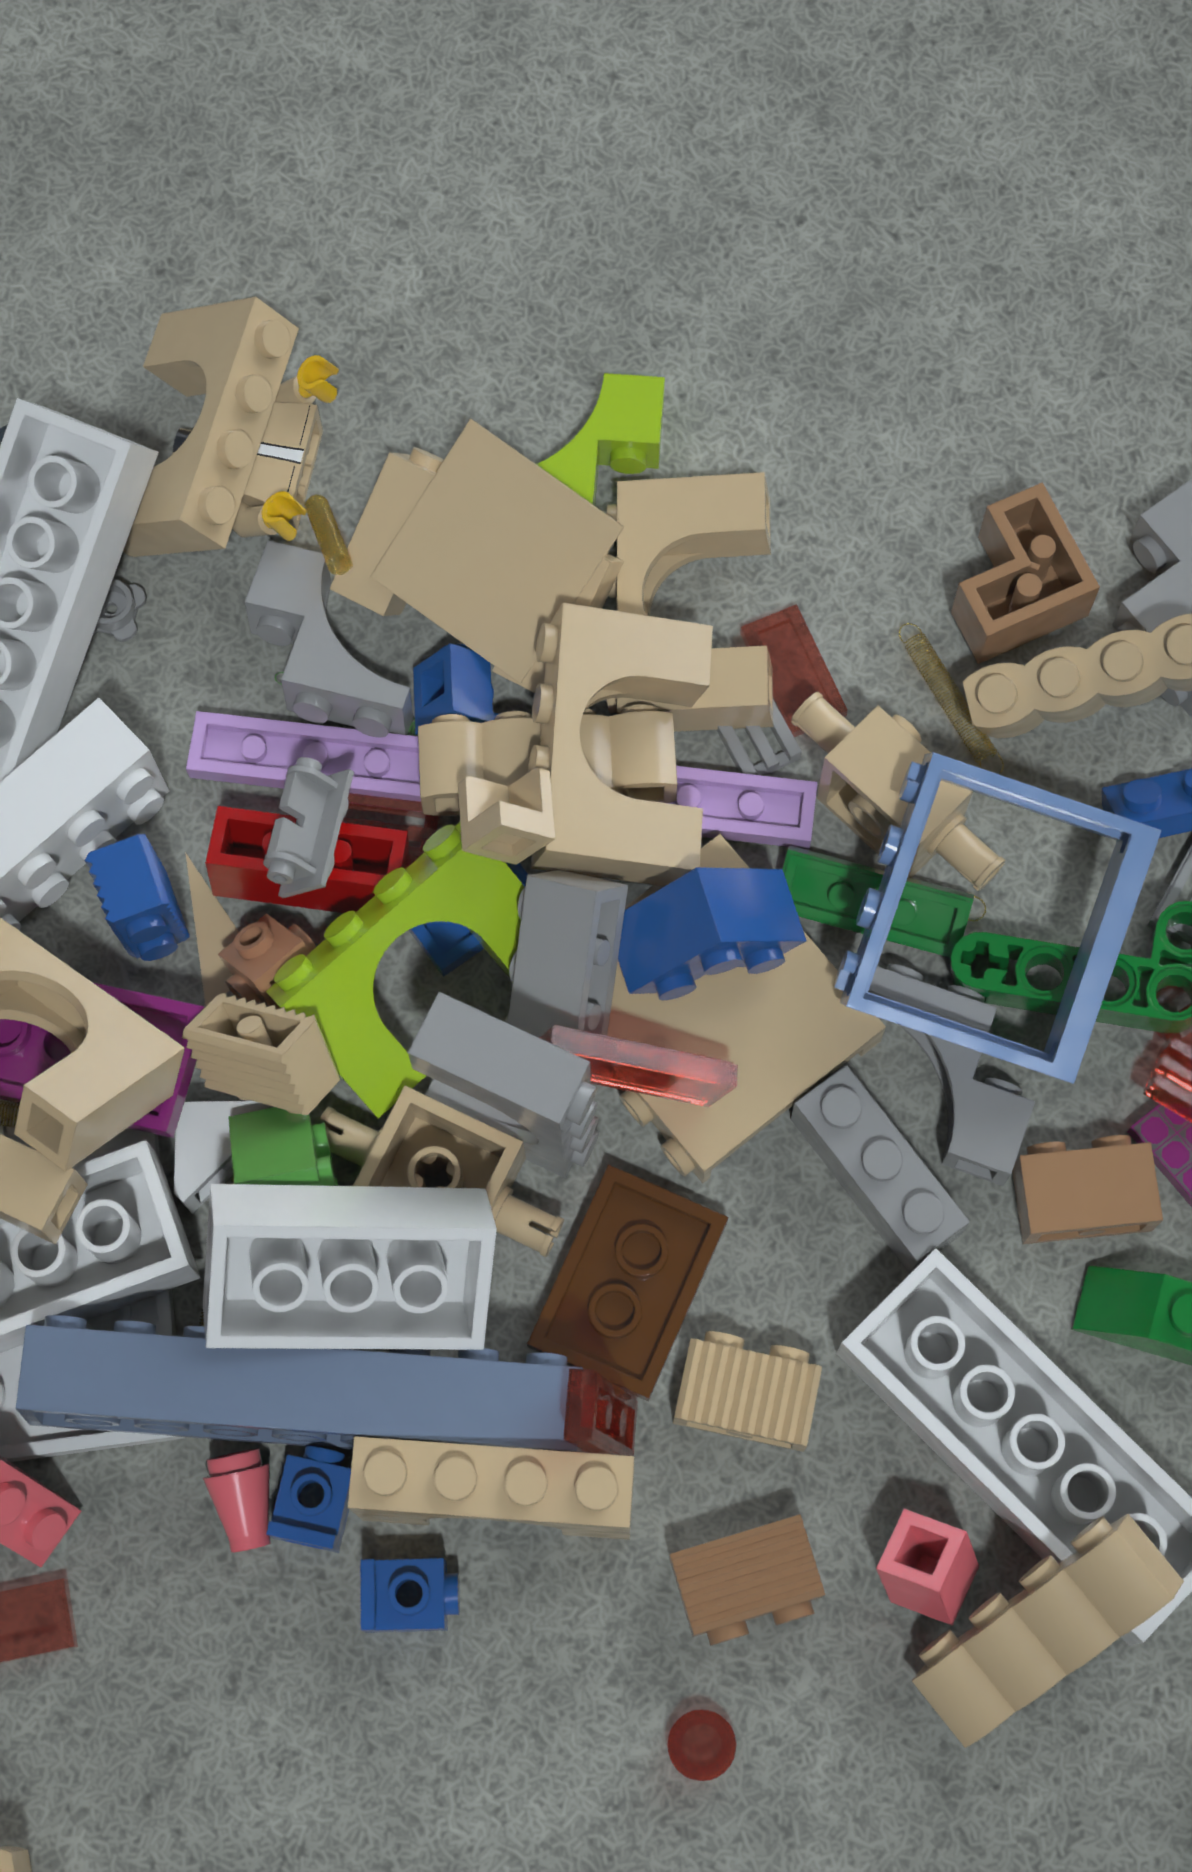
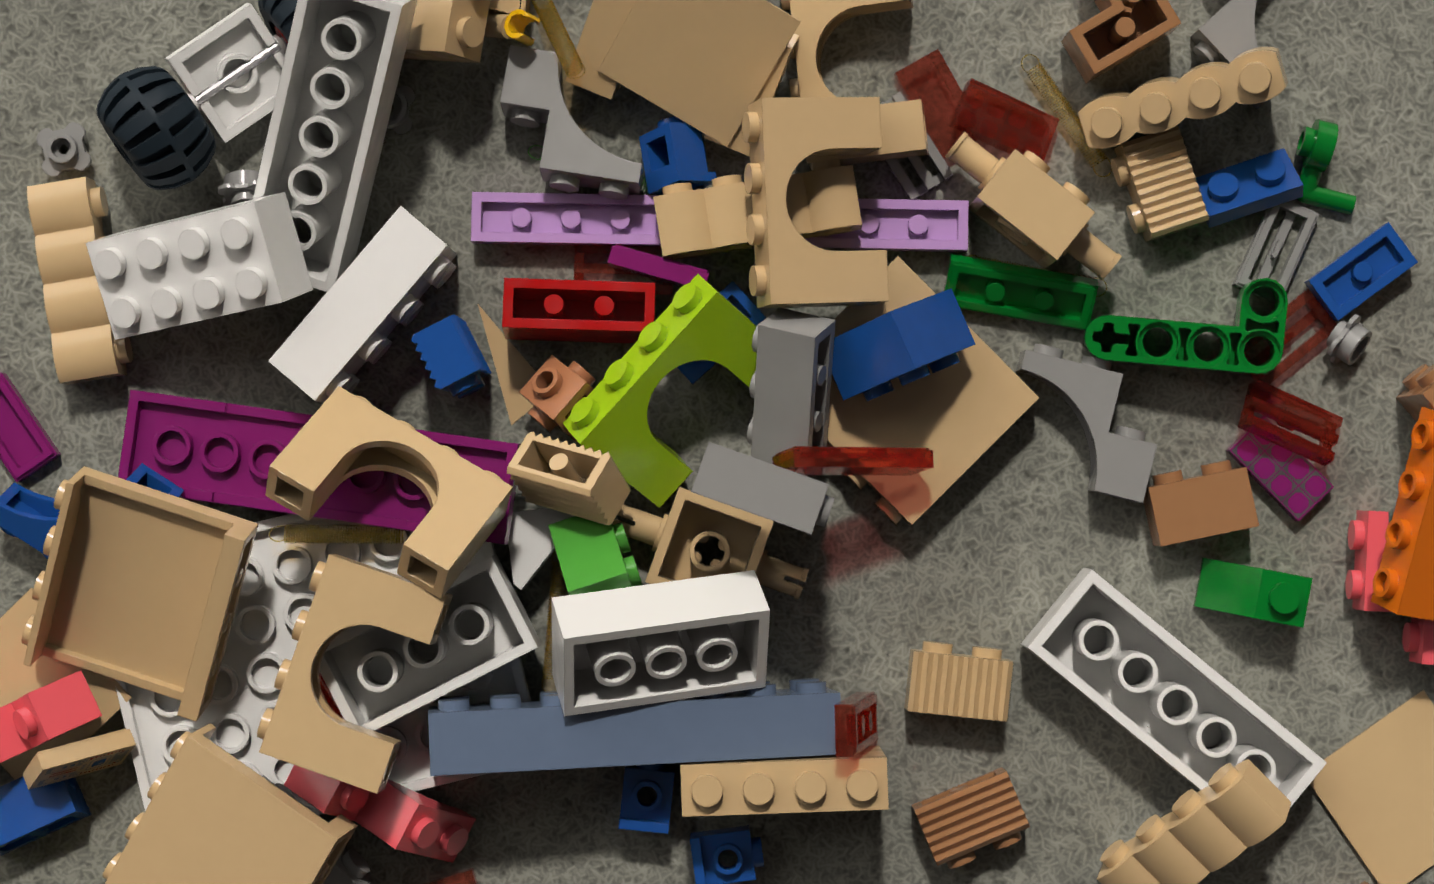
camera: 10 degrees left, 15 degrees up
(241, 1497) = (593, 798): coral cone -> none
(303, 852) = (581, 313): light grey hinge -> none
(393, 810) = (653, 266): none -> magenta tile
(506, 820) = (737, 277): tan panel -> none
(628, 1281) = (861, 609): reddish brown plate -> none
(859, 684) = (1003, 120): none -> clear red tile
(878, 1168) = (1042, 506): light grey brick -> none
(928, 1566) = (1102, 798): coral brick -> none
(1067, 762) = (1159, 184): none -> tan brick
(1098, 947) = (1196, 341): medium blue window -> none

